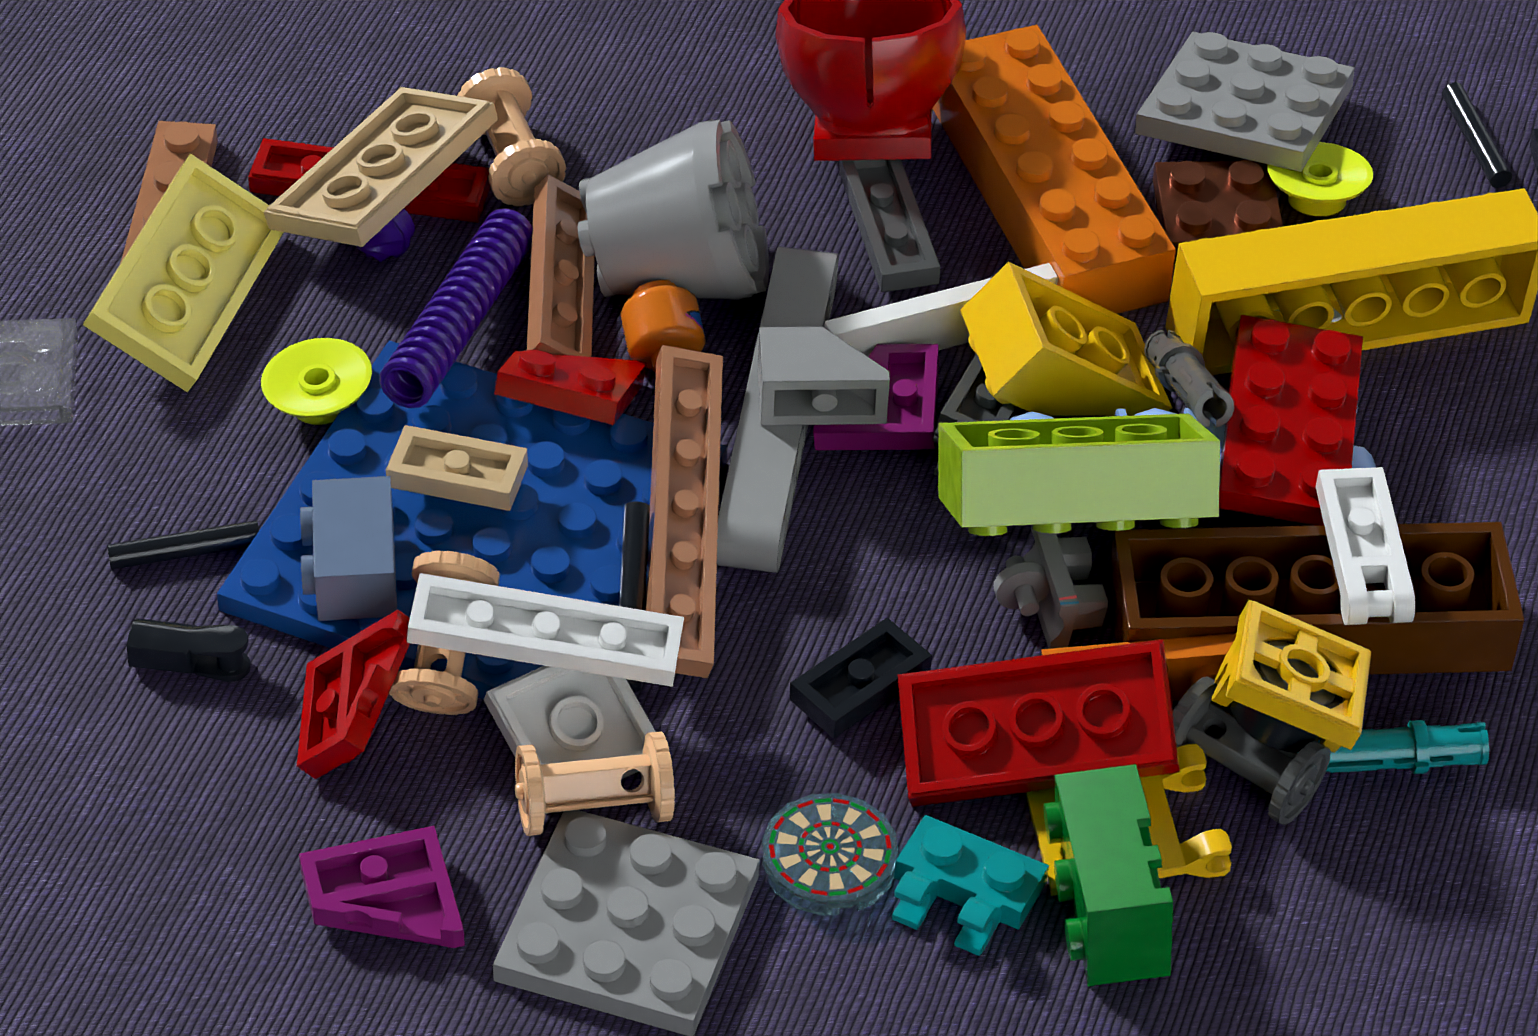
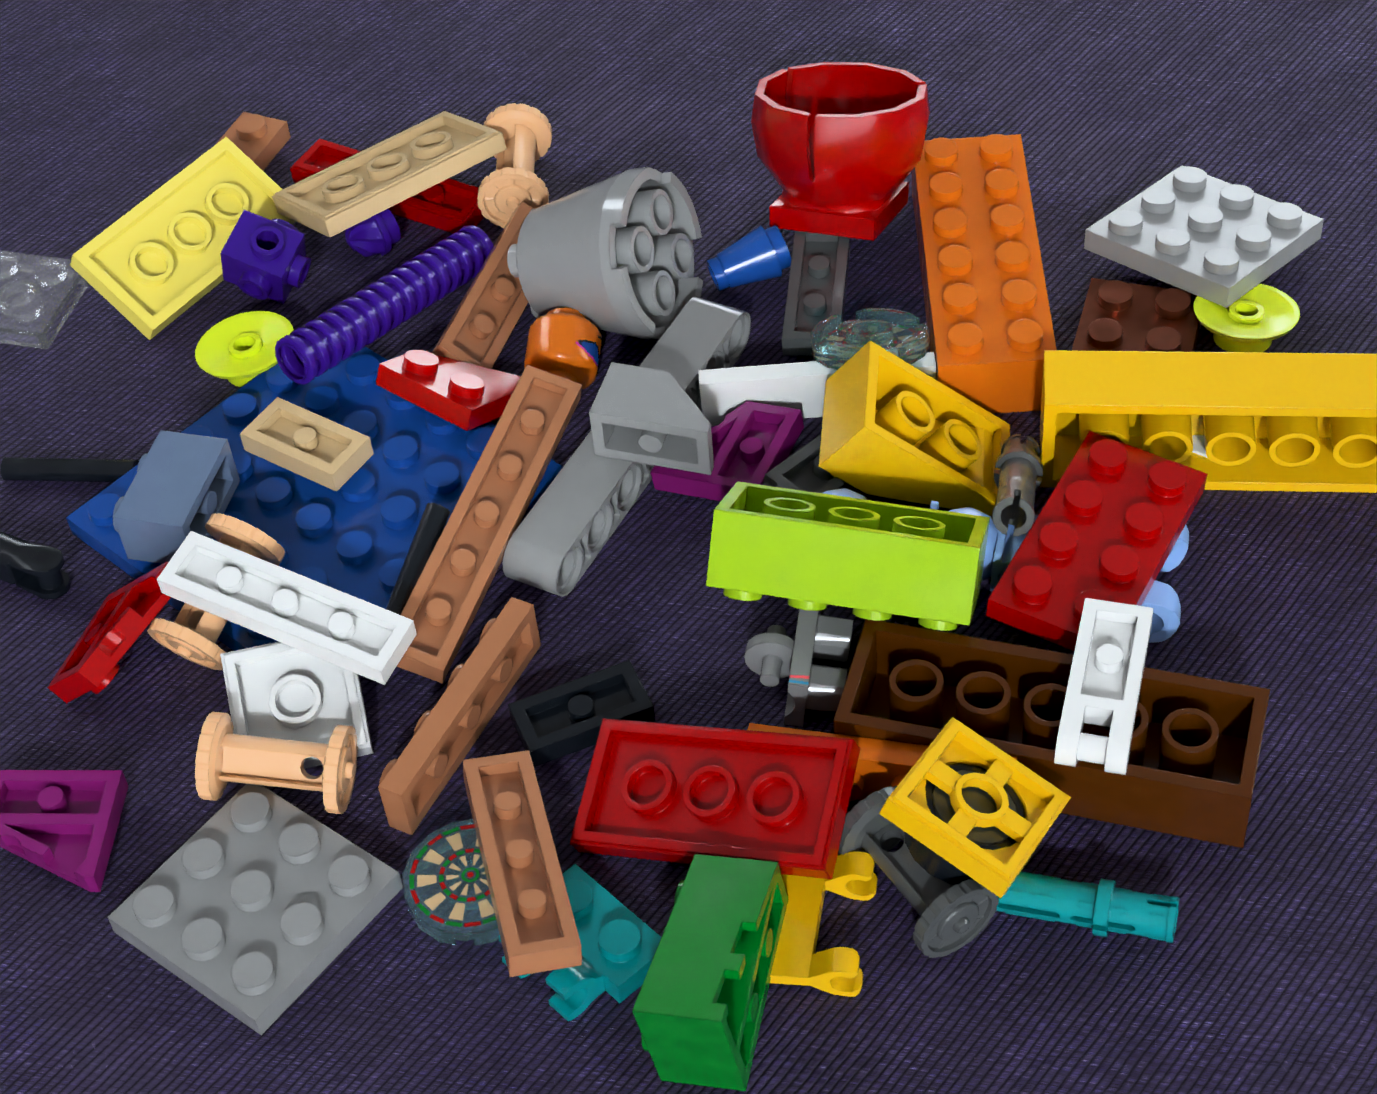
camera: 25 degrees right, 0 degrees up
(291, 280) = (265, 257): none -> dark purple brick
(738, 723) = (459, 717): none -> nougat plate
(807, 197) = (751, 259): none -> blue cone
(889, 819) = (521, 864): none -> nougat plate
(976, 257) = (892, 329): none -> clear light blue tile

